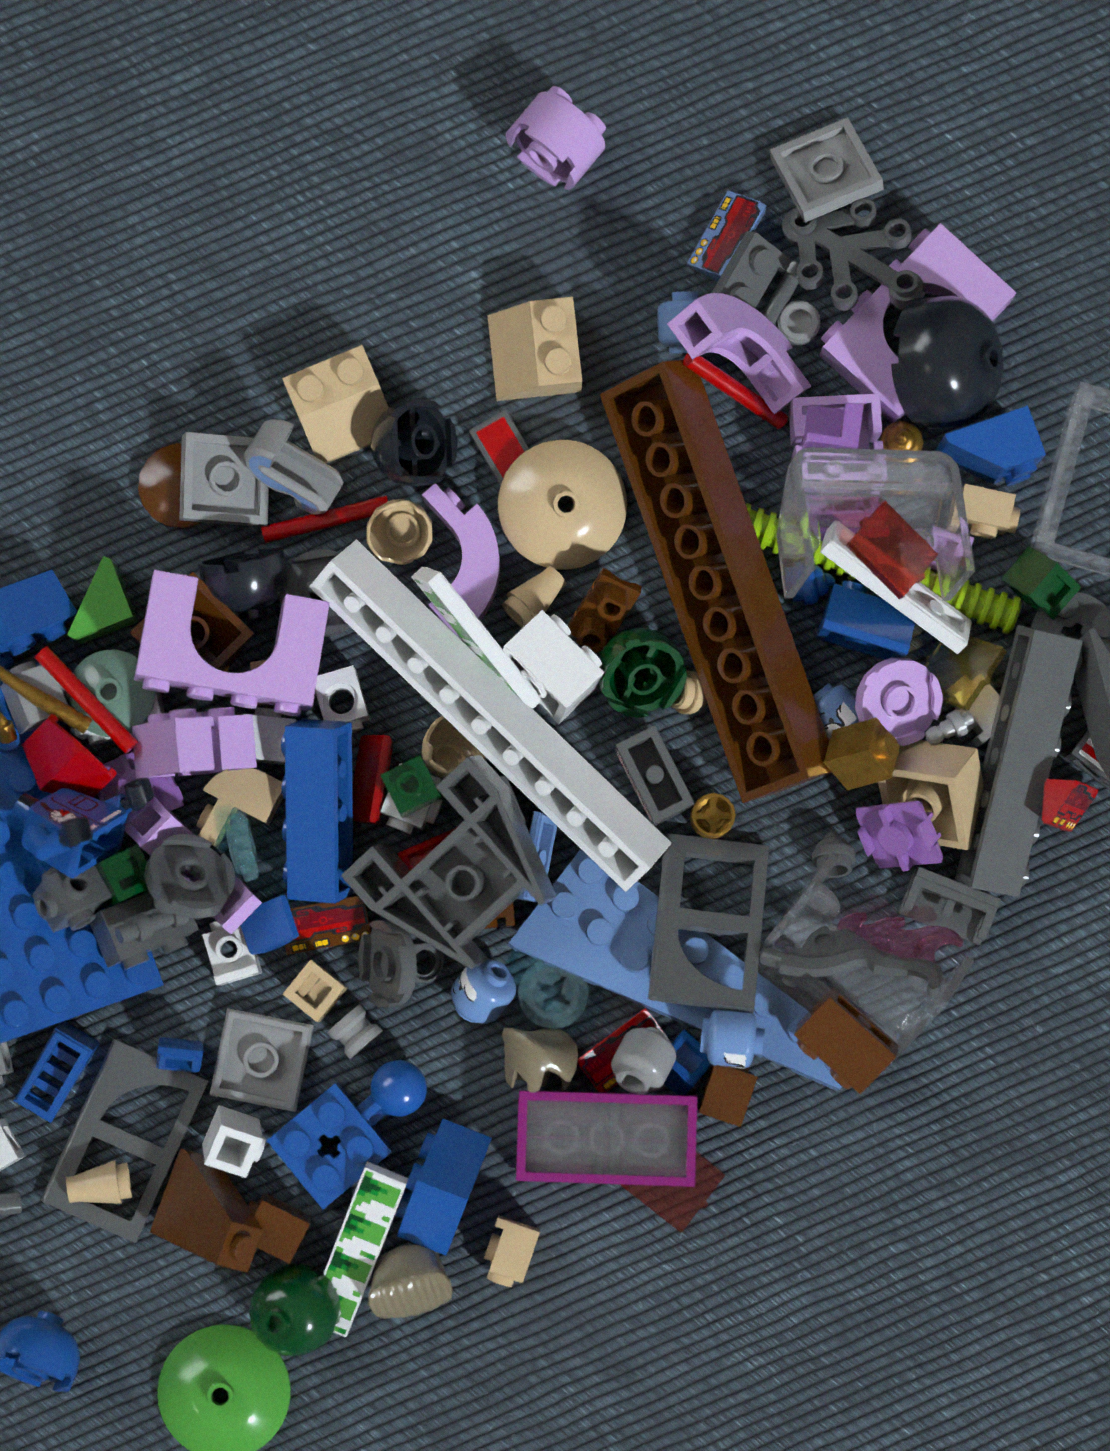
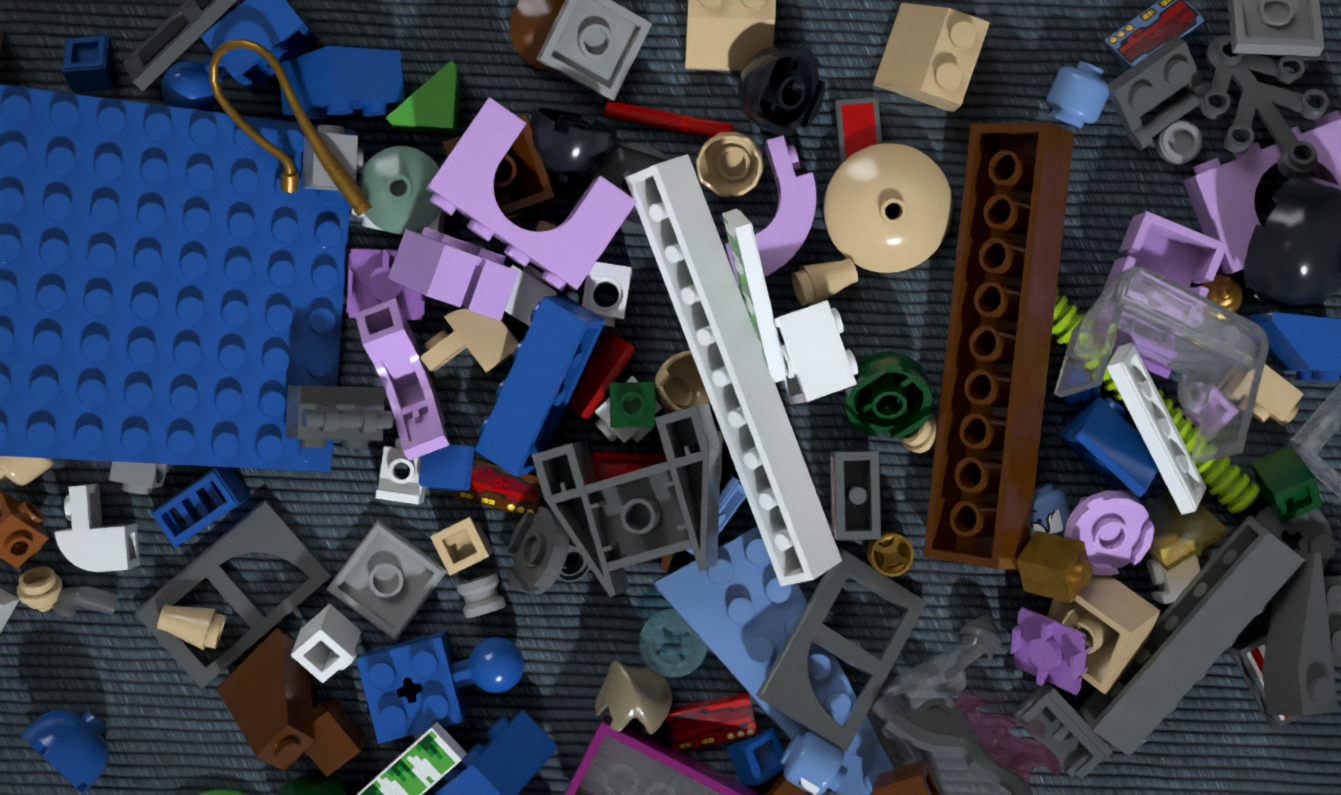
camera: 25 degrees right, 5 degrees up
(63, 761) = (327, 235): red slope -> none
(70, 901) = (279, 359): dark grey brick -> none
(75, 829) = (311, 301): blue torso -> none
(86, 699) = (374, 185): red bar -> none
(124, 875) = (333, 363): dark green brick -> none
(175, 893) = (374, 405): dark grey plate -> none
(179, 1055) = (316, 541): blue slope -> none
(242, 847) = (456, 384): clear light blue gear -> none
(291, 469) = (658, 60): light grey animal -> none
(483, 992) = (613, 617): medium blue head -> none
(603, 610) = (880, 322): reddish brown hips -> none
(643, 1060) = (725, 745): light grey head -> none
(734, 390) = (1095, 177): red bar -> none
(746, 338) = (1130, 138): lavender arch -> none
(833, 427) = (1173, 257): medium lavender panel -> none
(891, 549) = (1171, 394): clear red piece -> none
(953, 725) = (1149, 577): light grey piece -> none
(1065, 802) = (1213, 691): red slope -> none

